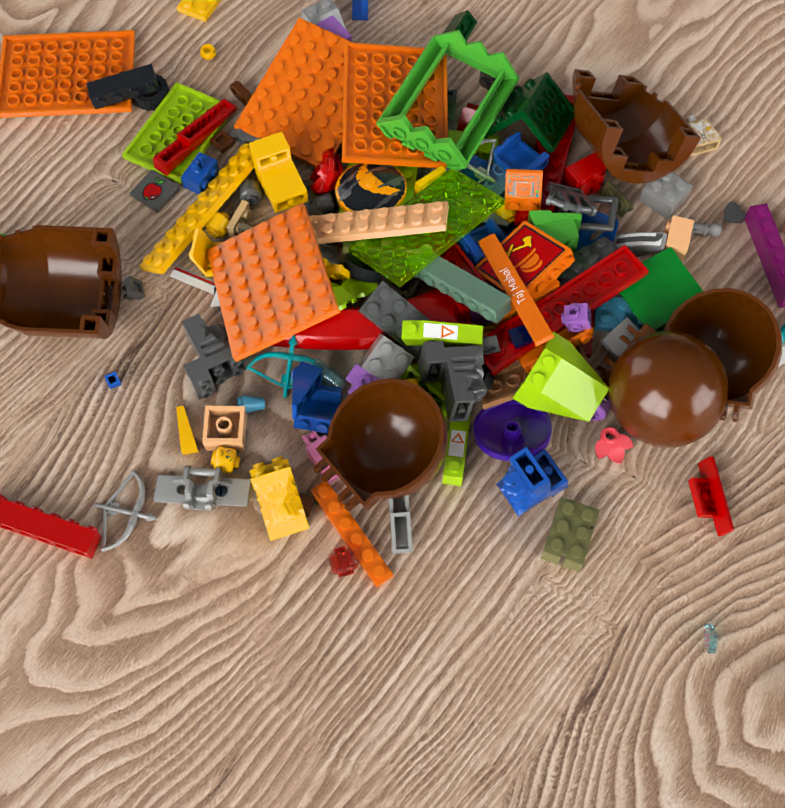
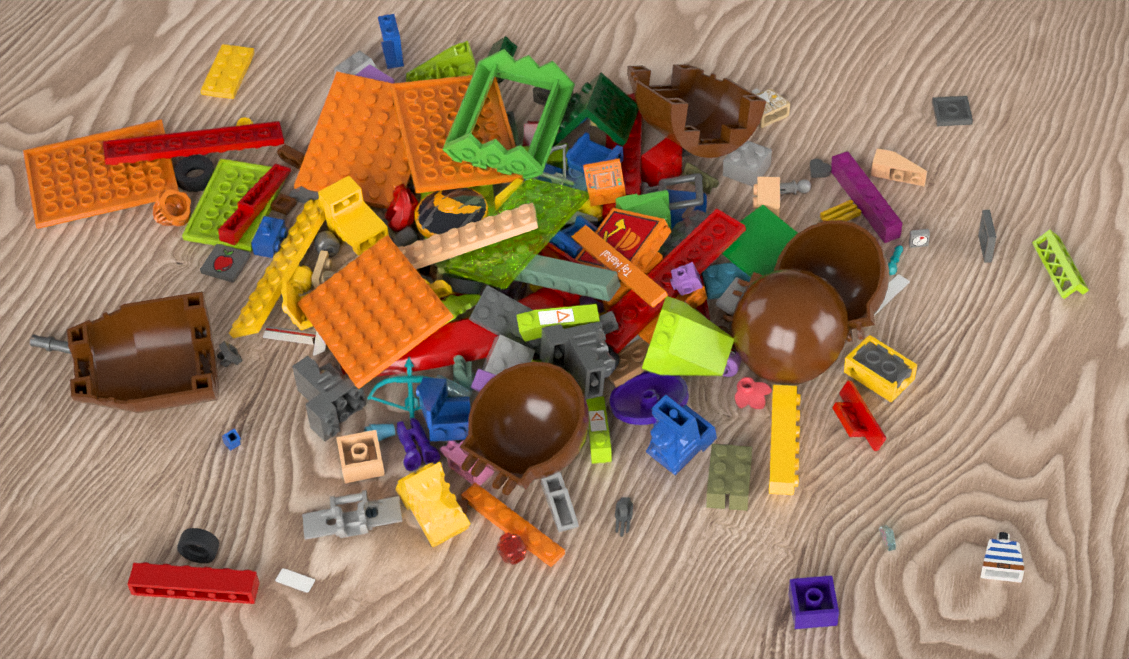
camera: 10 degrees left, 15 degrees down
(51, 489) = (191, 538): none -> black tyre
(114, 508) = (265, 554): light grey piece -> none
(118, 124) = (172, 208): none -> orange helmet
(123, 86) = (167, 171): black brick -> none
(136, 544) = (295, 580): none -> white sticker
(164, 61) = (192, 143): none -> red plate
(187, 439) = (322, 474): yellow piece -> none
(225, 458) = (368, 481): yellow head -> none
(290, 439) = (413, 459): none -> dark purple piece
(342, 361) = (463, 372): none -> sand green arm
(408, 30) = (452, 62): none -> lime wedge
(459, 548) = (623, 514): none -> dark grey piece
(520, 336) = (635, 310): clear blue tile -> none
(569, 199) = (653, 181): dark grey plate -> none
(620, 697) = (813, 602): none -> dark purple brick
(631, 505) = (783, 440): none -> yellow brick
(642, 242) = (736, 207): slope -> none
(742, 264) = (839, 211): none -> yellow tile
(745, 449) = (880, 368): none -> piece

